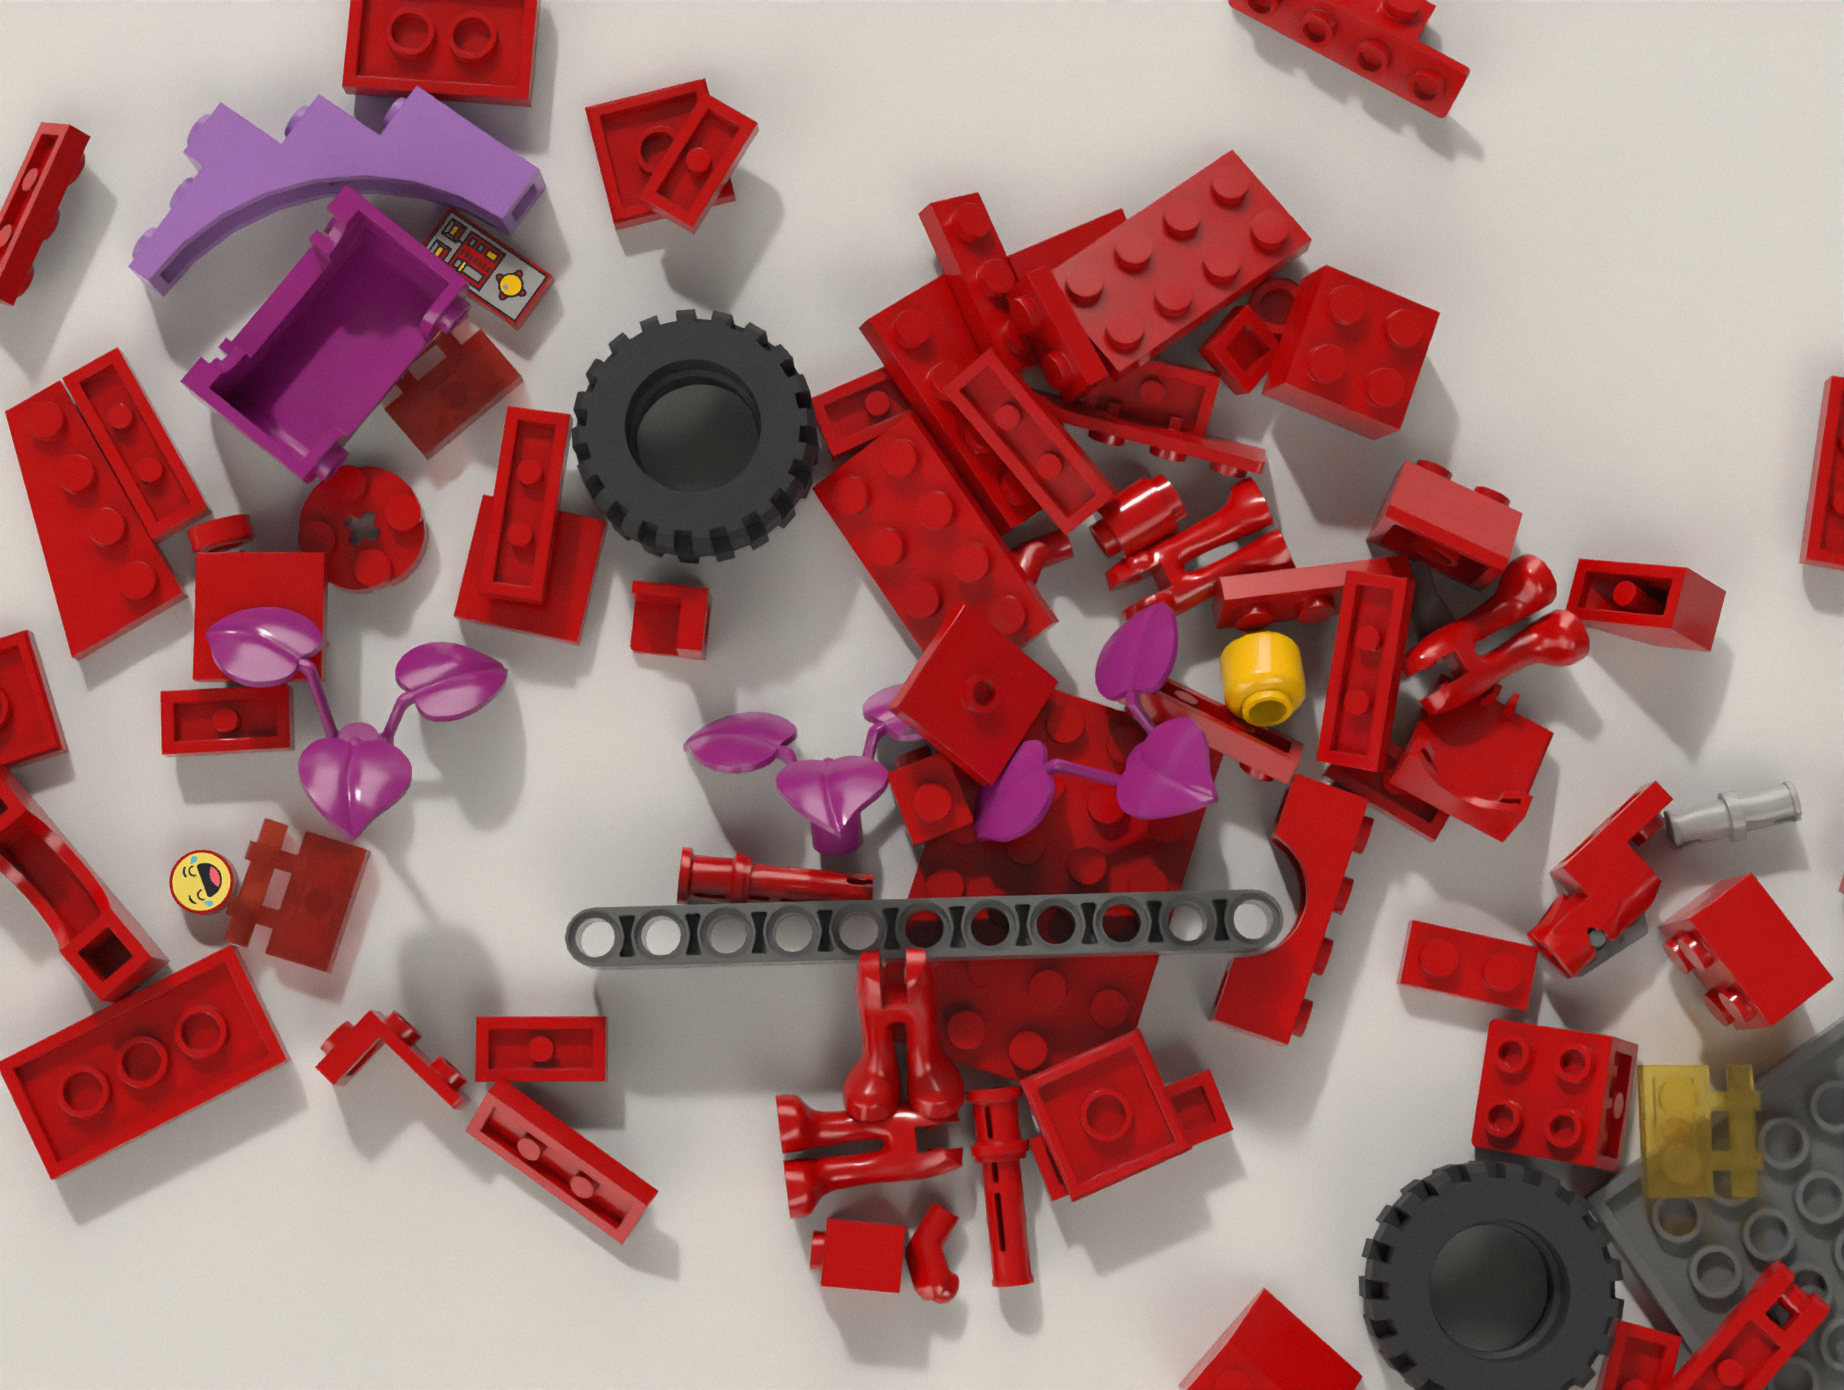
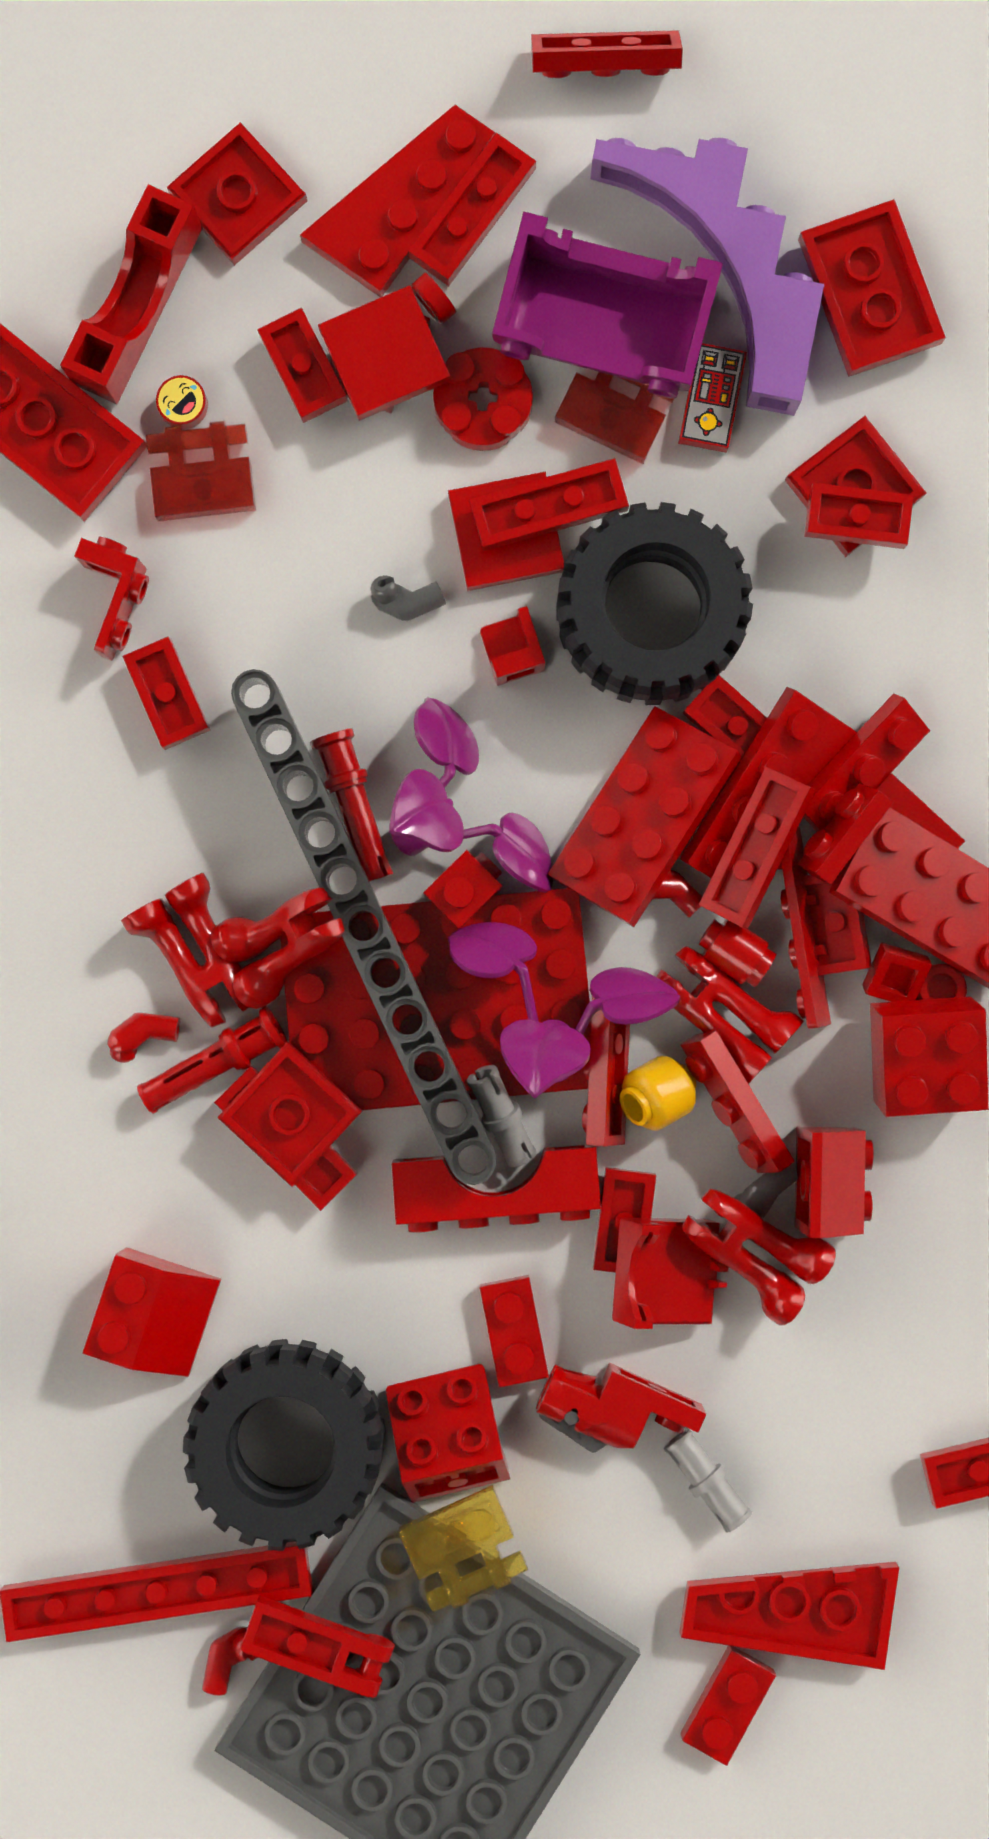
camera: 70 degrees right, 5 degrees up
(354, 770) = (295, 471): magenta plant -> none
(559, 726) = (402, 602): none -> dark grey arm
(561, 1160) = (94, 741): red plate -> none
(859, 1254) = (118, 981): red brick -> none
(973, 694) = (549, 887): red plate -> none
(1212, 868) = (501, 1116): none -> light grey pin
(1366, 670) = (693, 1166): red plate -> none
(1647, 603) = (838, 1353): red slope -> none
(1743, 954) = (606, 1530): red brick -> none

